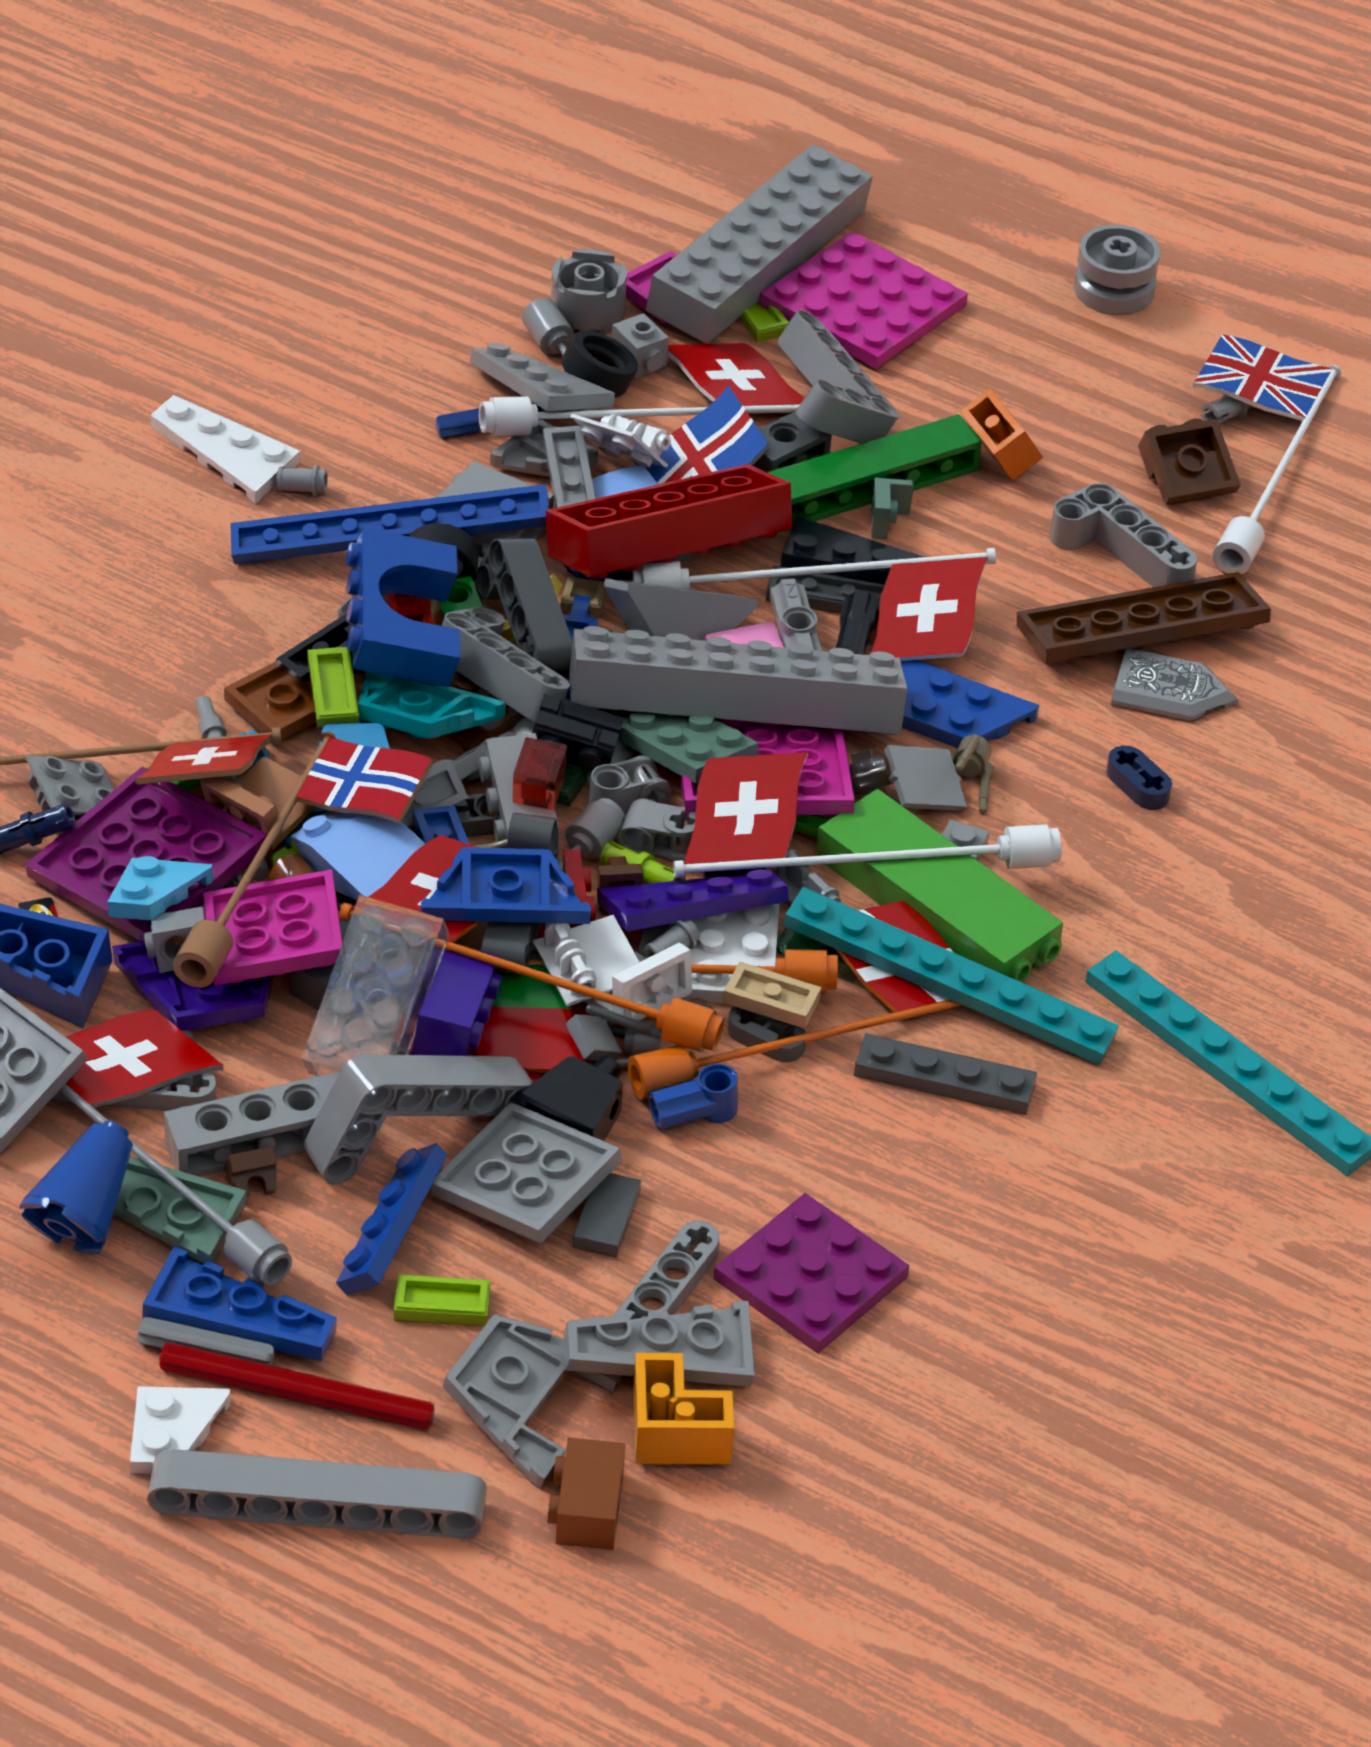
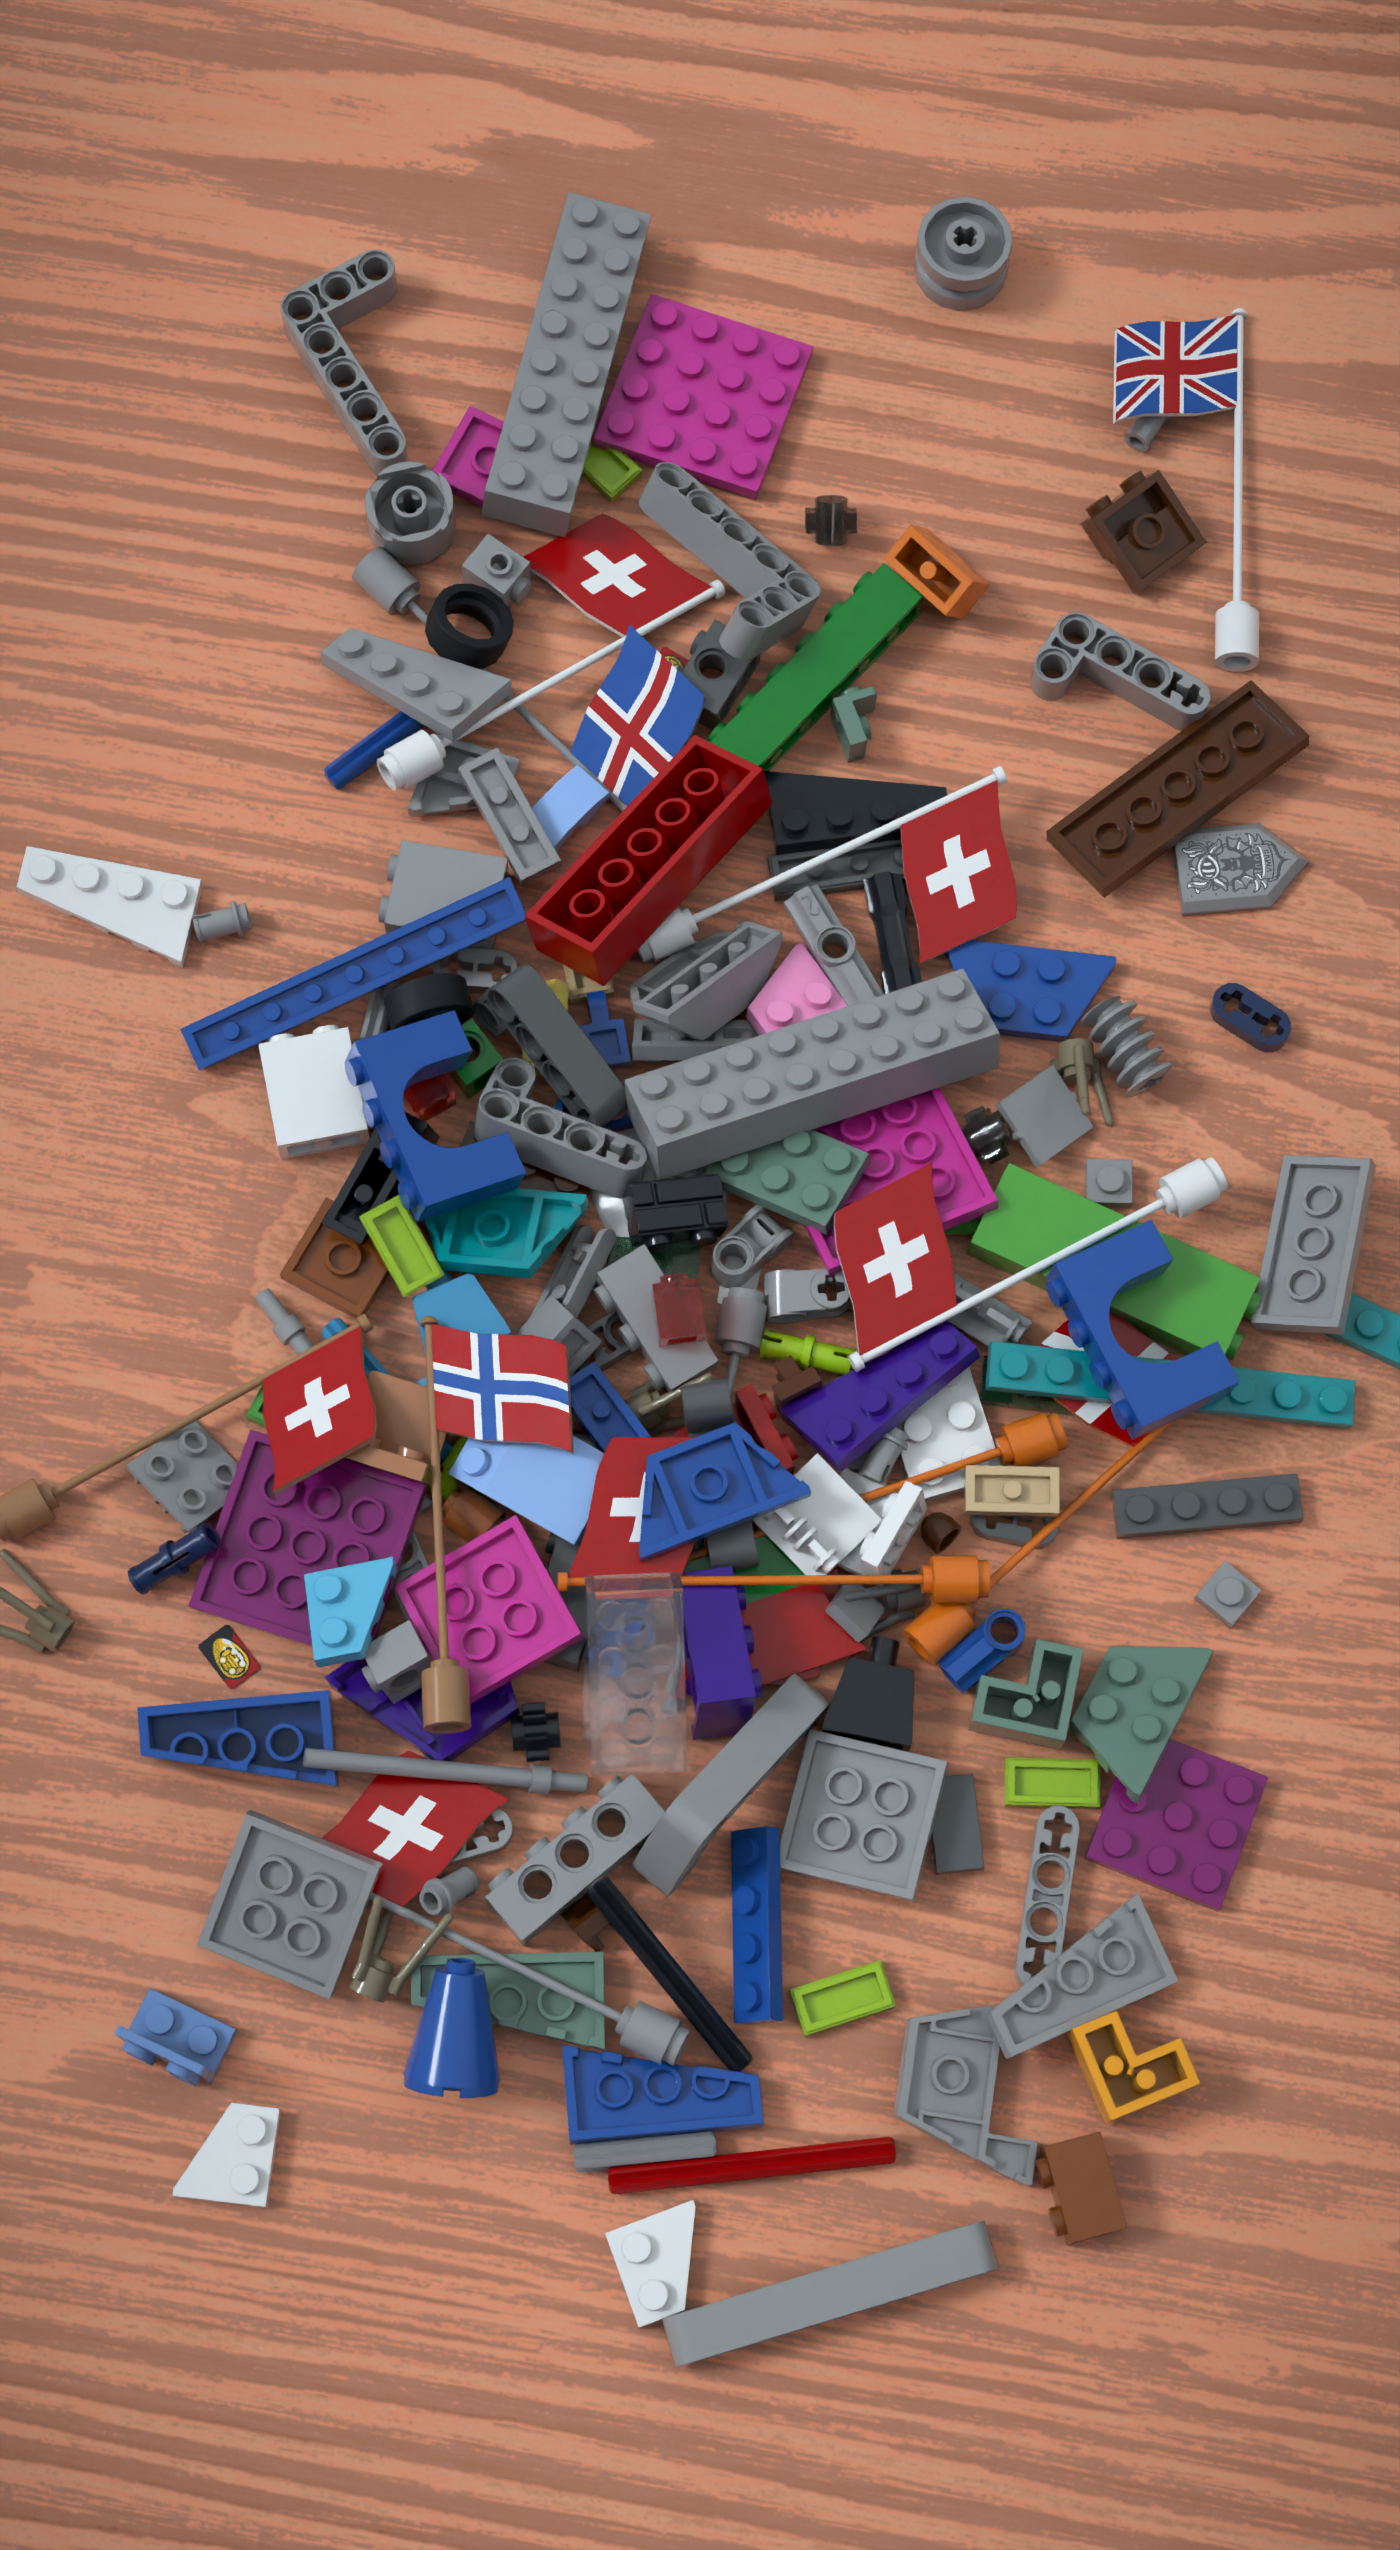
camera: 20 degrees left, 30 degrees up
(41, 1142) = (373, 1973): none -> dark tan plant
(127, 1104) = (441, 1894): none -> light grey pin
(254, 1064) = (536, 1779): none -> light grey bar
(270, 1030) = (535, 1731): none -> black gear
(294, 1215) = (669, 1974): none -> black axle
(308, 591) = (310, 1093): none -> white panel
(590, 170) = (339, 363): none -> light grey beam
(626, 437) = (542, 744): white hinge -> none
(717, 1143) = (1033, 1710): none -> sand green brick
(731, 1217) = (1051, 1783): none -> lime tile
(814, 1176) = (1137, 1707): none -> sand green wing
(920, 947) = (1140, 1391): none -> blue arch
(929, 387) = (831, 520): none -> clear smoke gear
(934, 1137) = (1227, 1594): none -> light grey plate
(1020, 754) = (1126, 1045): none -> light grey piece
(1122, 920) = (1313, 1244): none -> light grey plate

